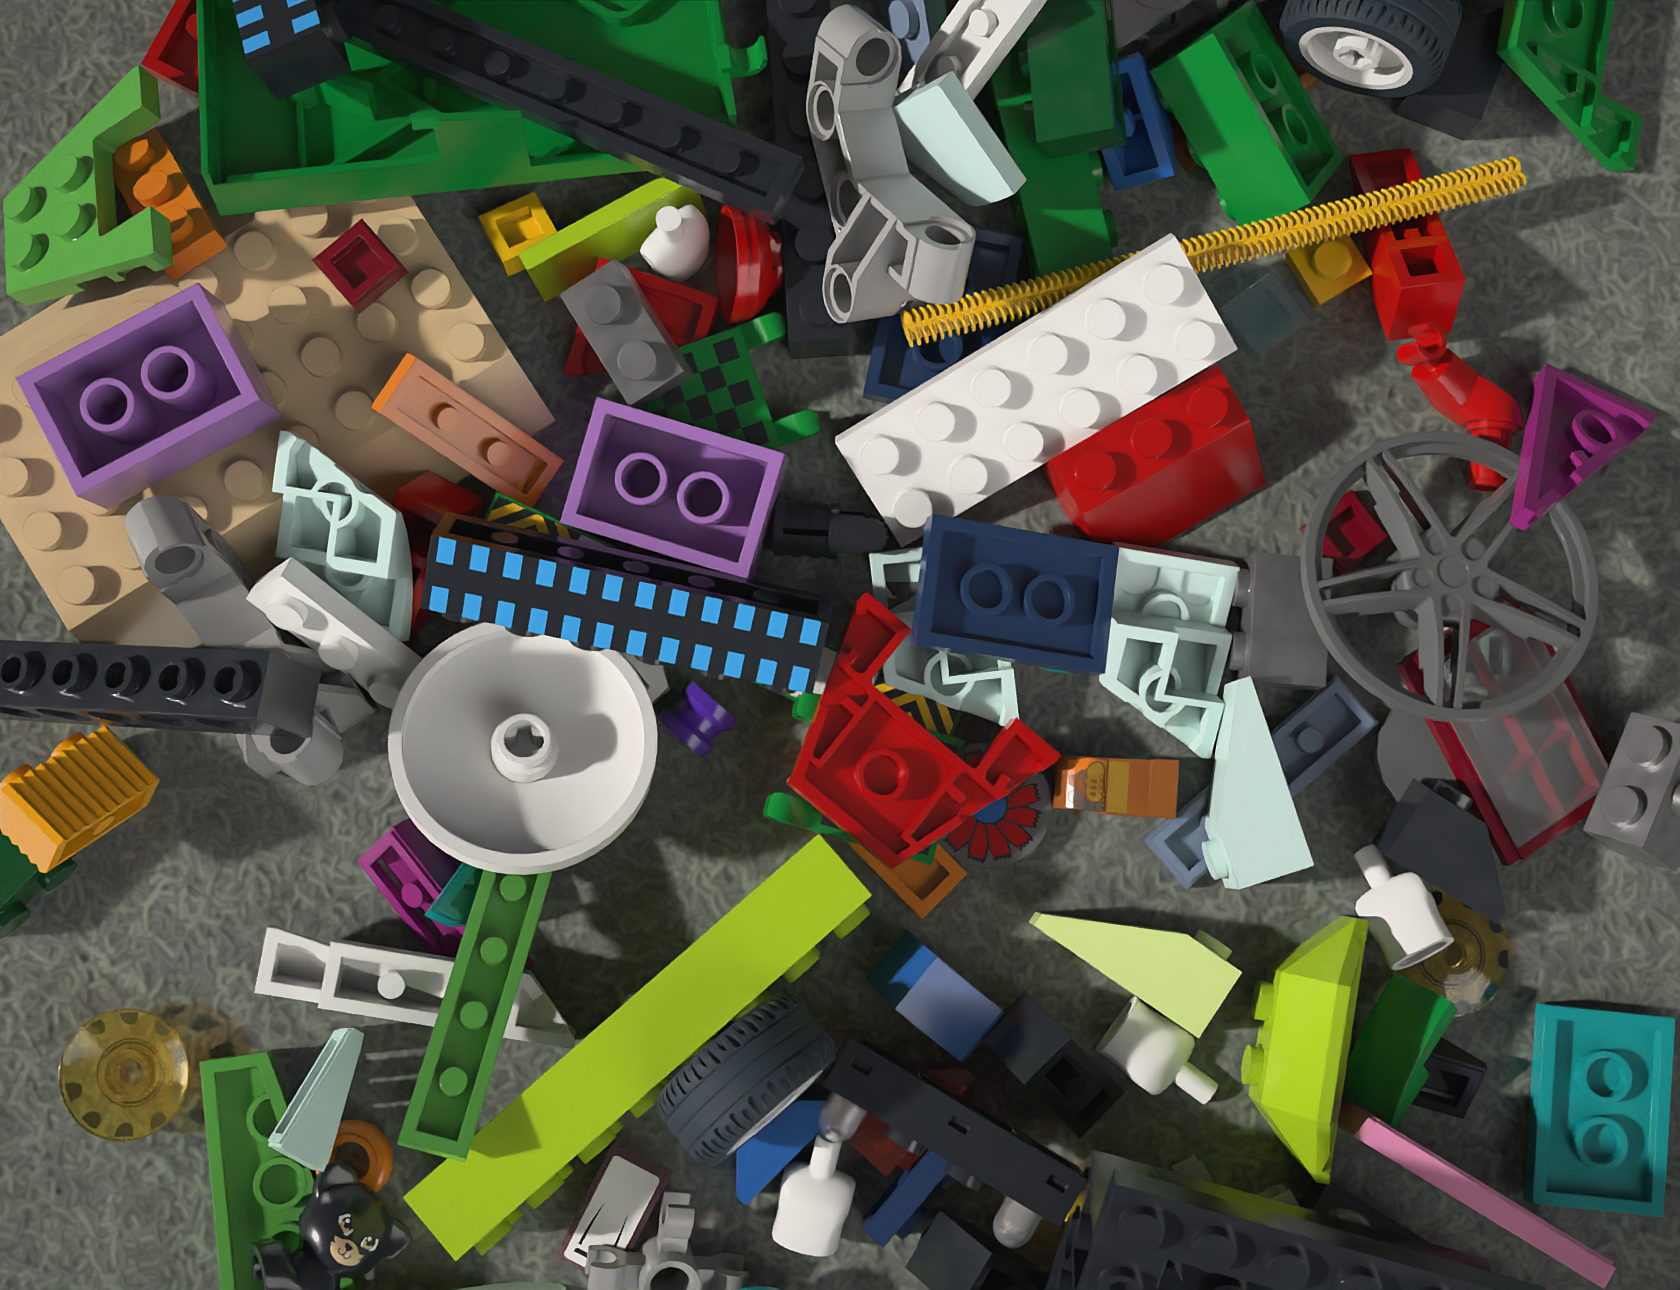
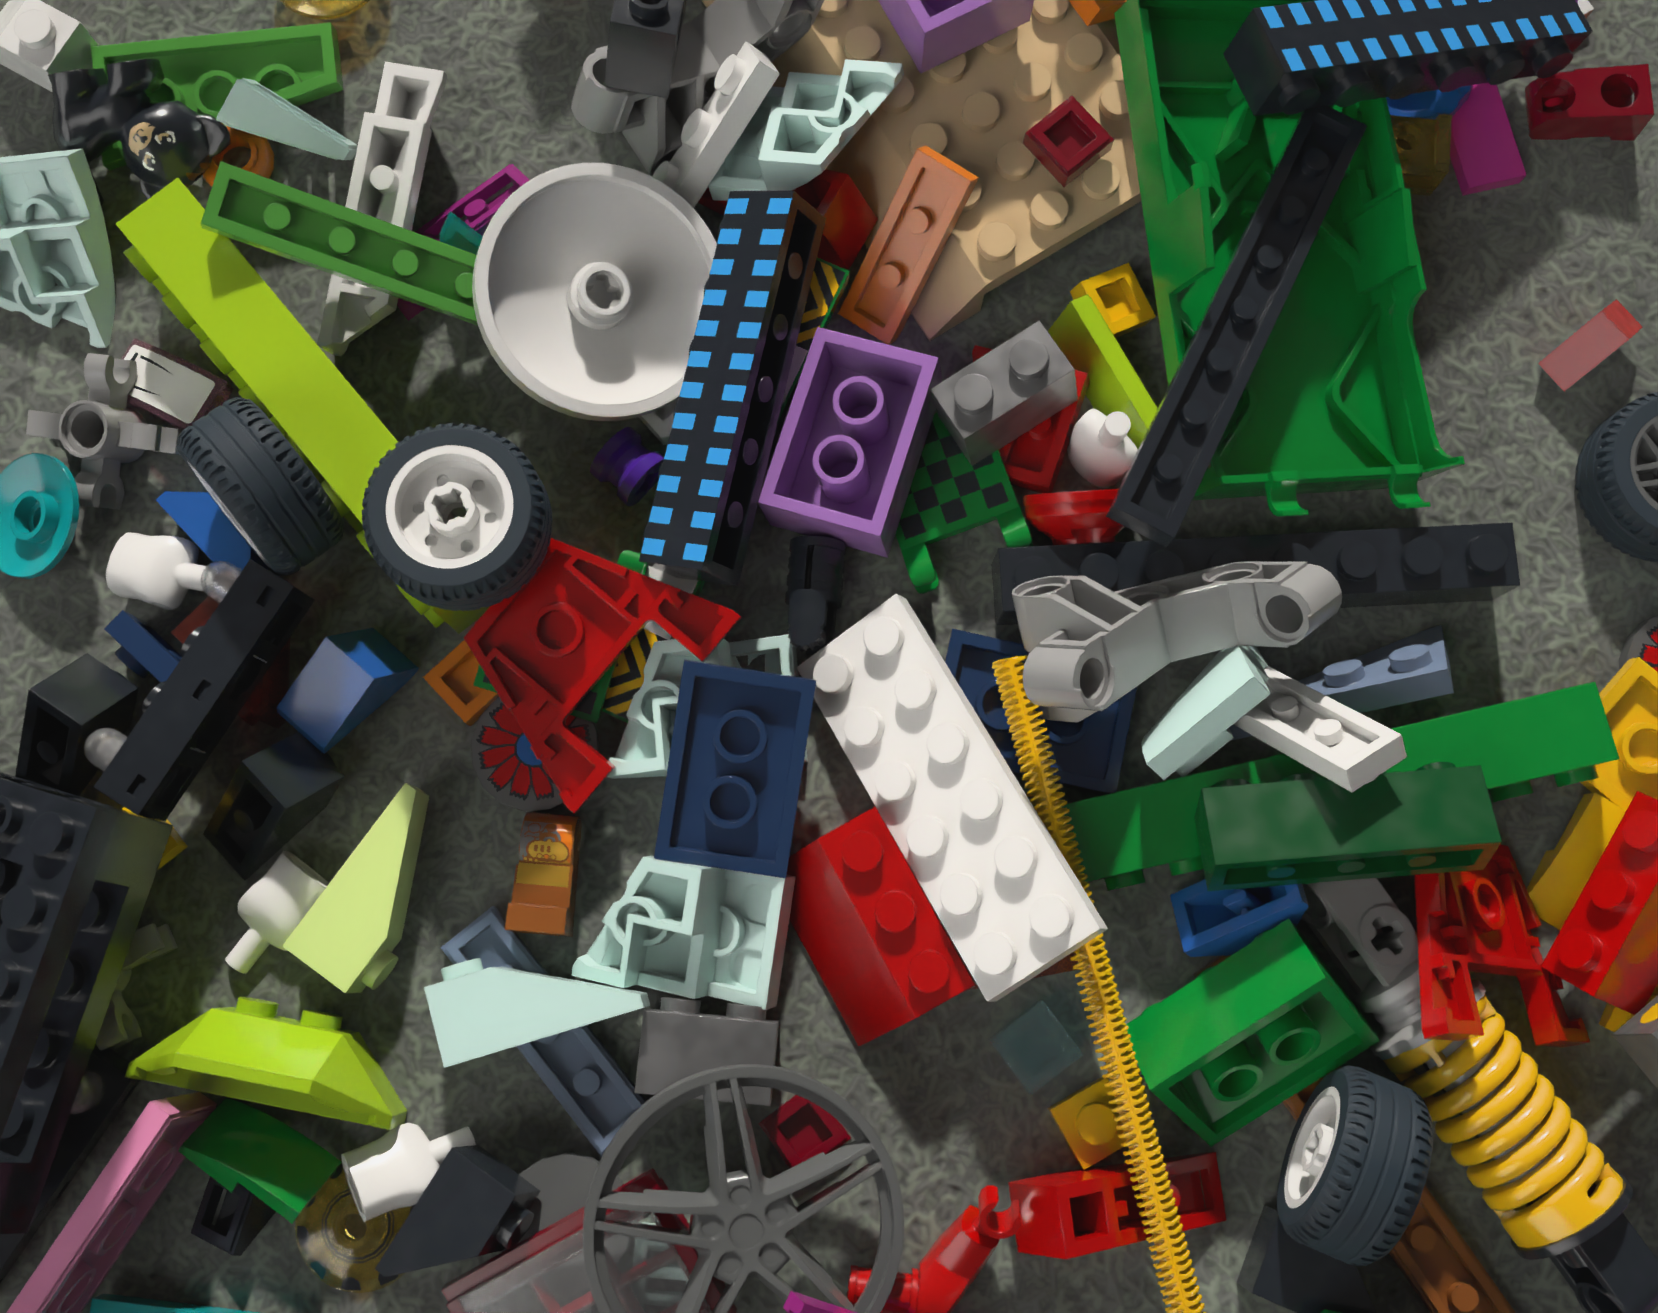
camera: 90 degrees right, 5 degrees down
(739, 874) = (450, 476): none -> wheel

